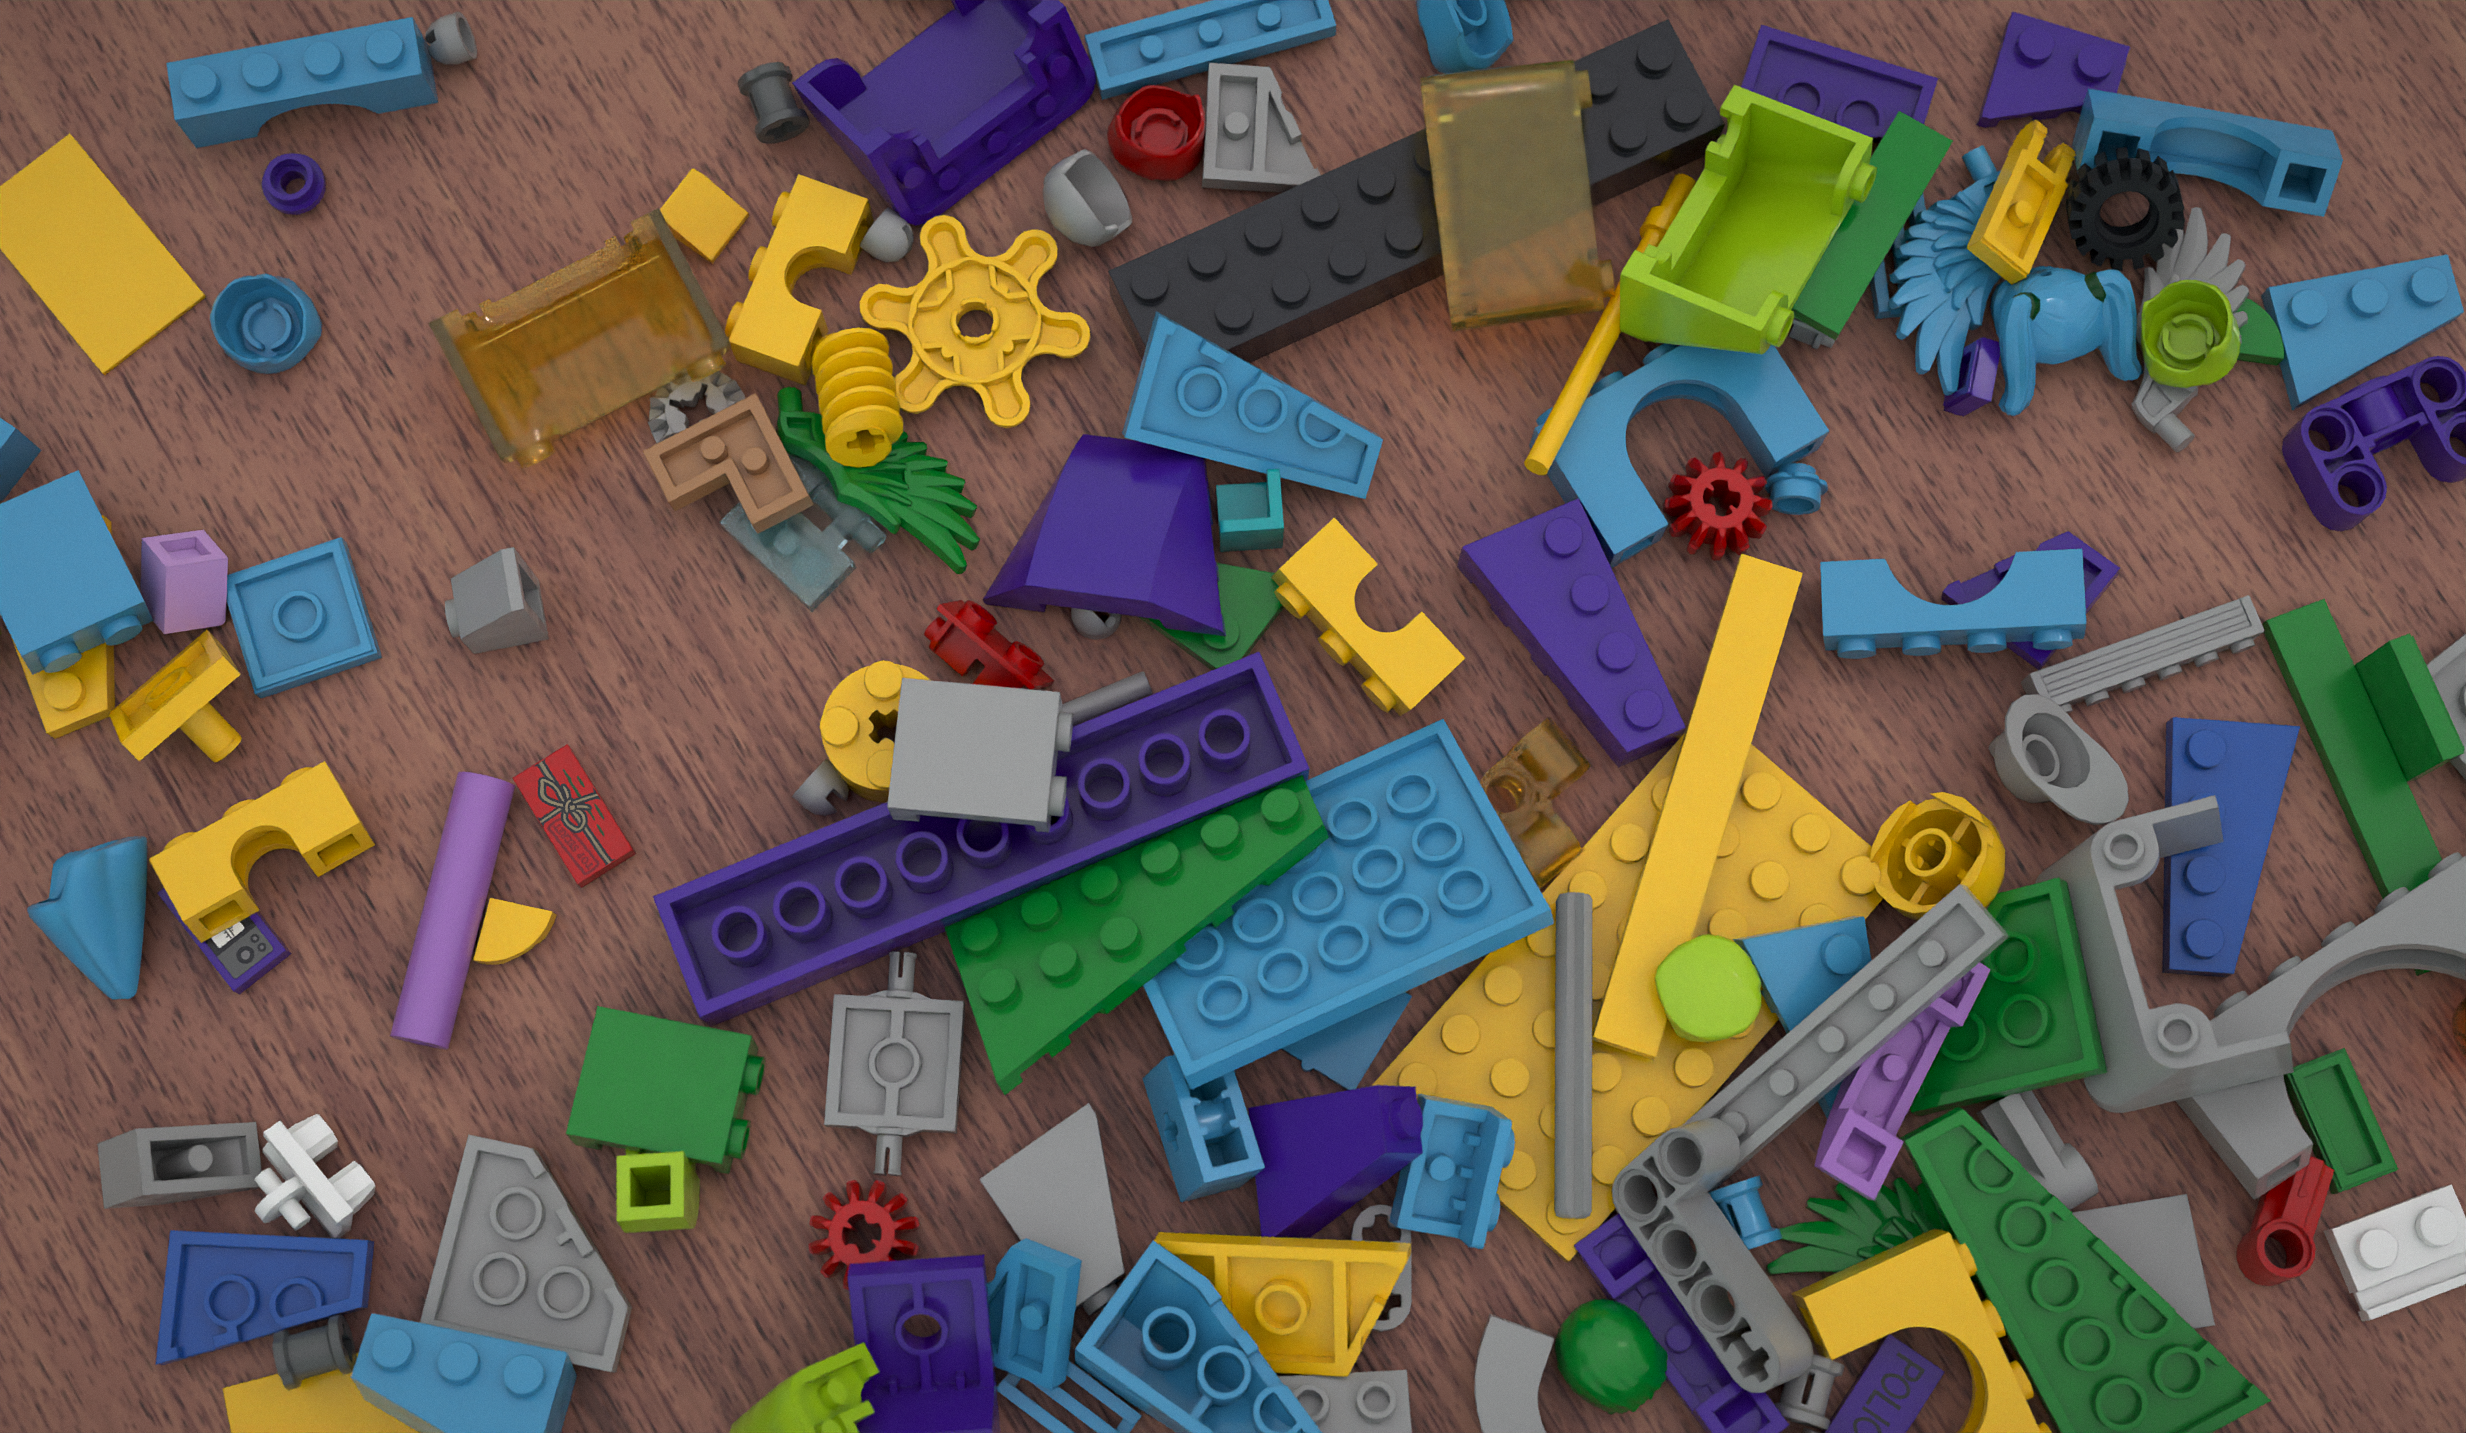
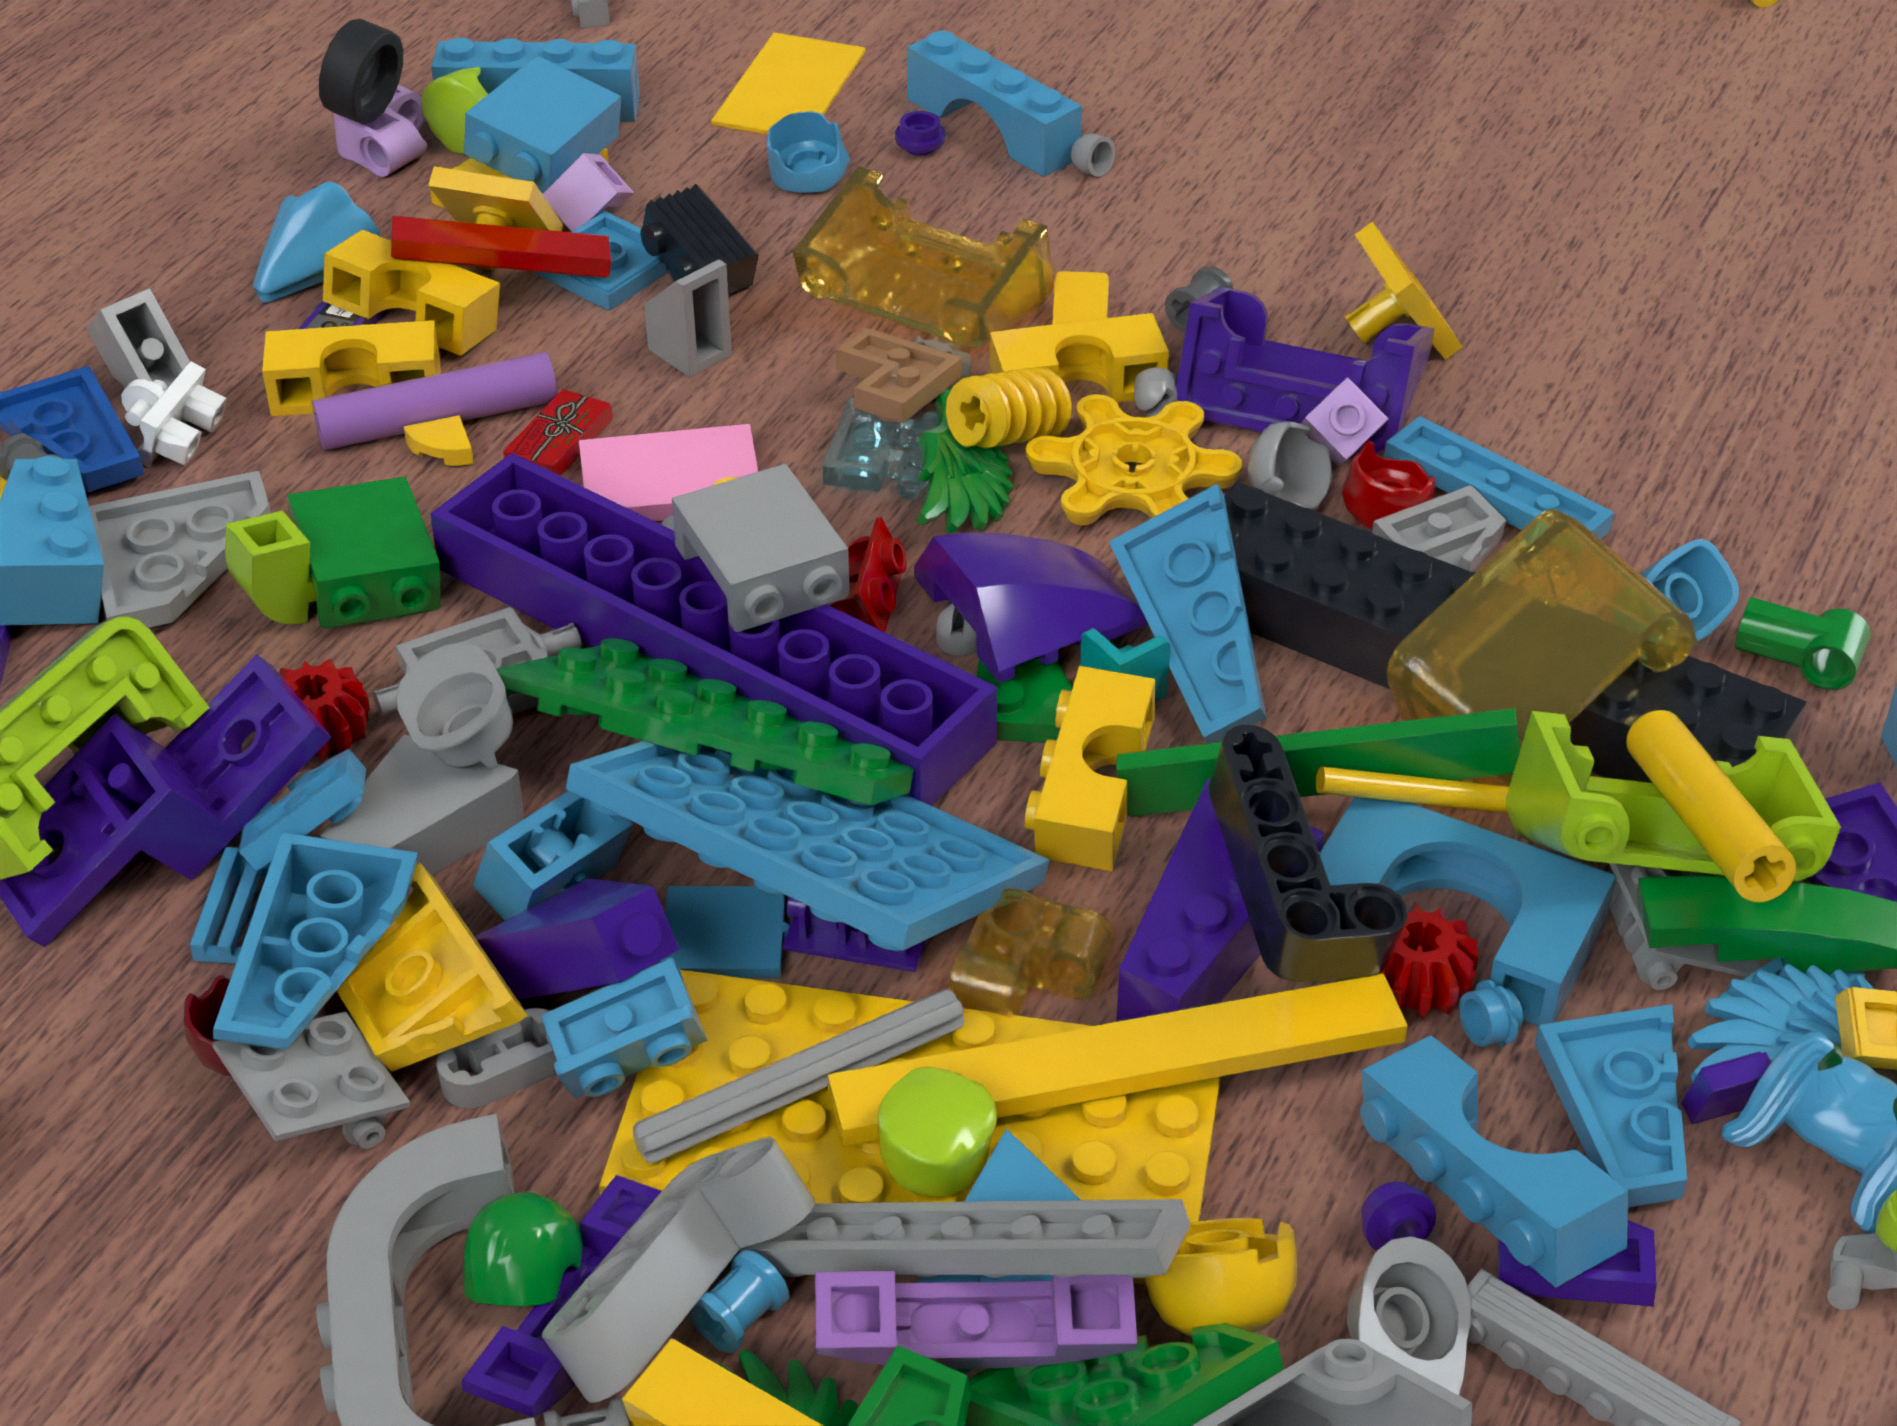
camera: 60 degrees right, 35 degrees down
(263, 731) = (500, 246): none -> red tile
(308, 1009) = (319, 361): none -> yellow arch
(375, 528) = (692, 233): none -> black brick
(706, 744) = (654, 467): none -> bright pink tile
(1013, 1131) = (456, 705): none -> light grey piece
(1077, 119) = (1344, 421): none -> lavender brick
(1498, 445) = (1427, 748): none -> green tile
(1620, 552) = (1297, 917): none -> black beam
(1770, 204) = (1711, 807): none -> yellow piece
(1927, 457) = (1622, 1096): none -> dark azure wing
(1945, 696) = (1396, 1213): none -> dark purple plate

